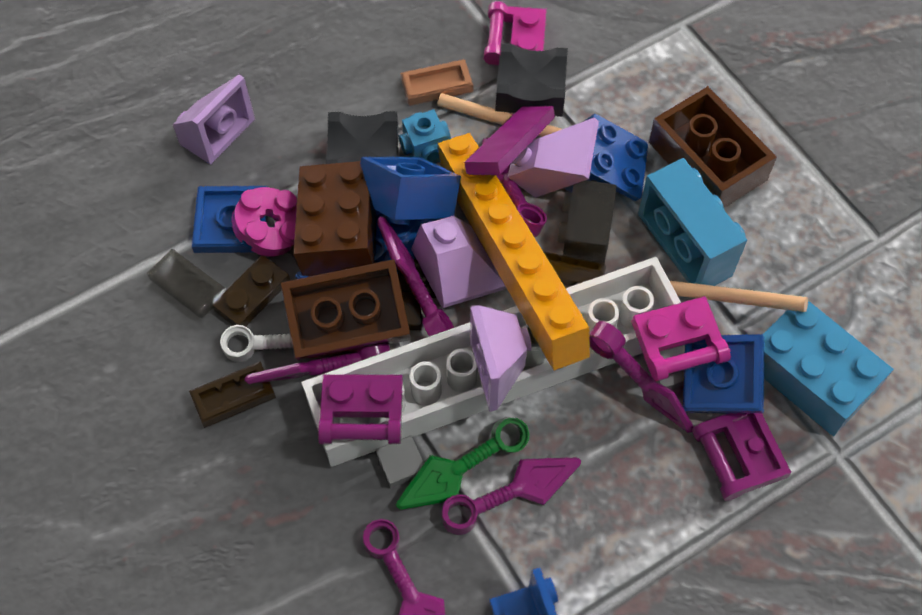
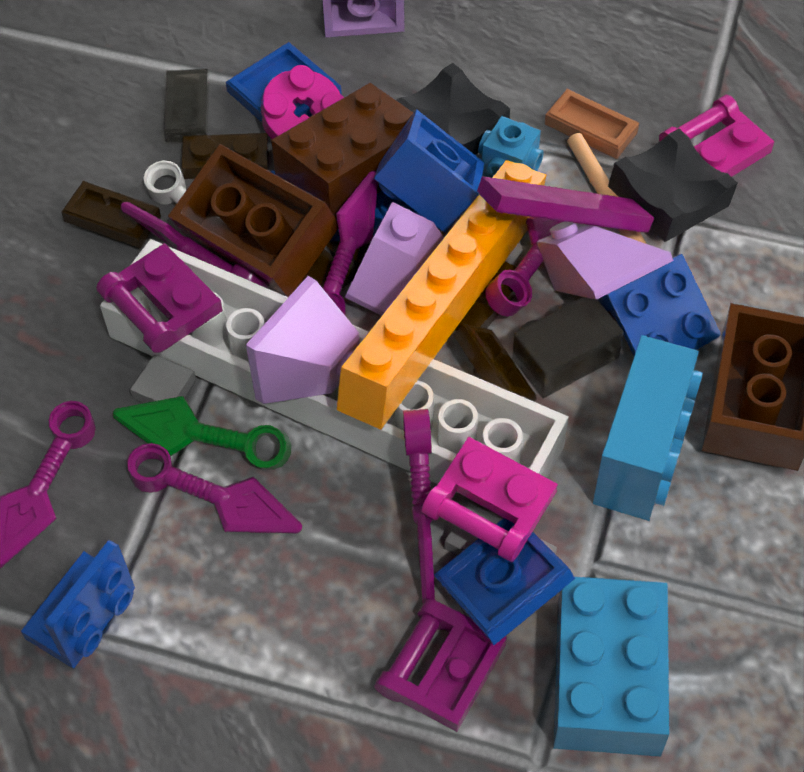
camera: 50 degrees right, 5 degrees down
(741, 296) = (607, 525): light nougat bar -> none

